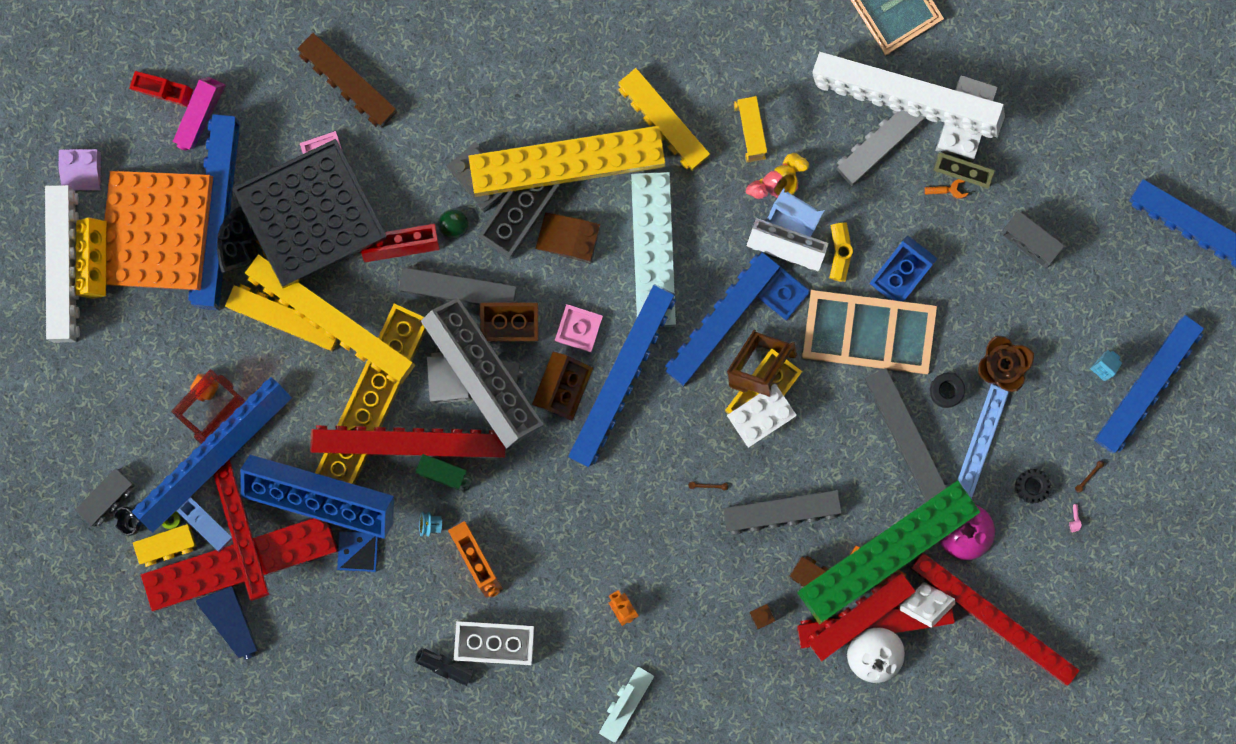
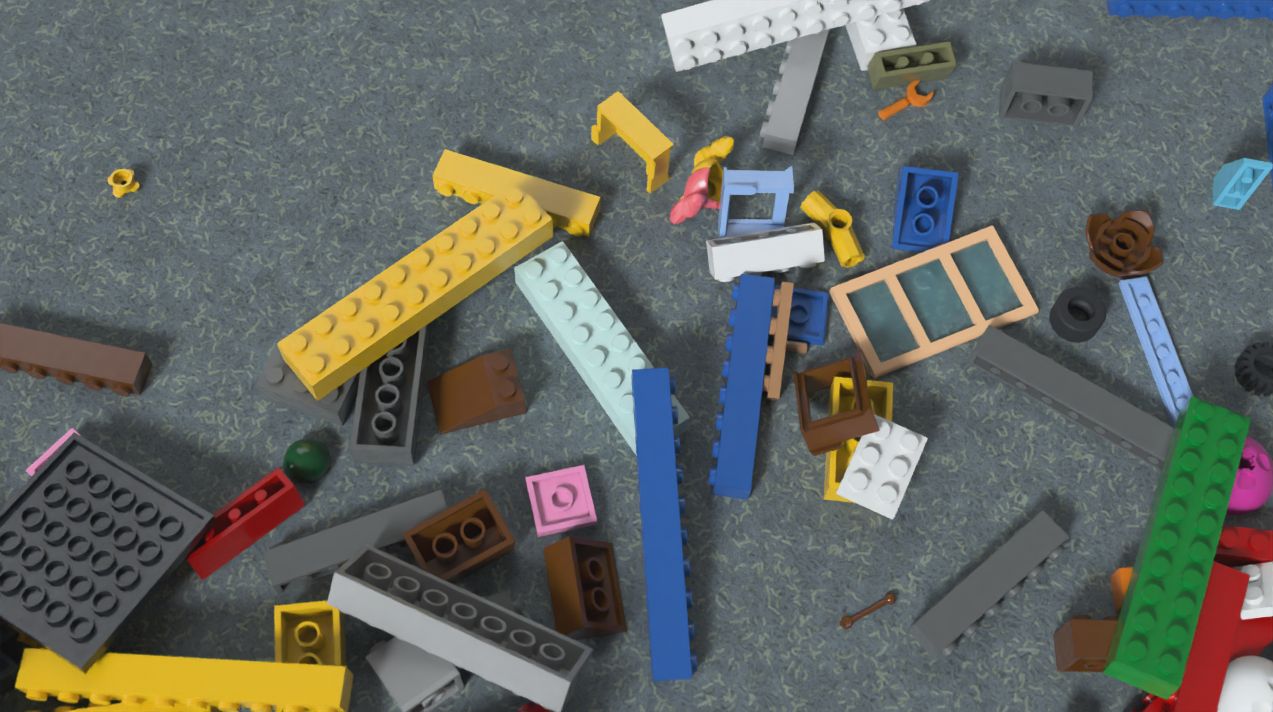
camera: 40 degrees left, 20 degrees down
(759, 305) = (776, 353): none -> medium nougat plate

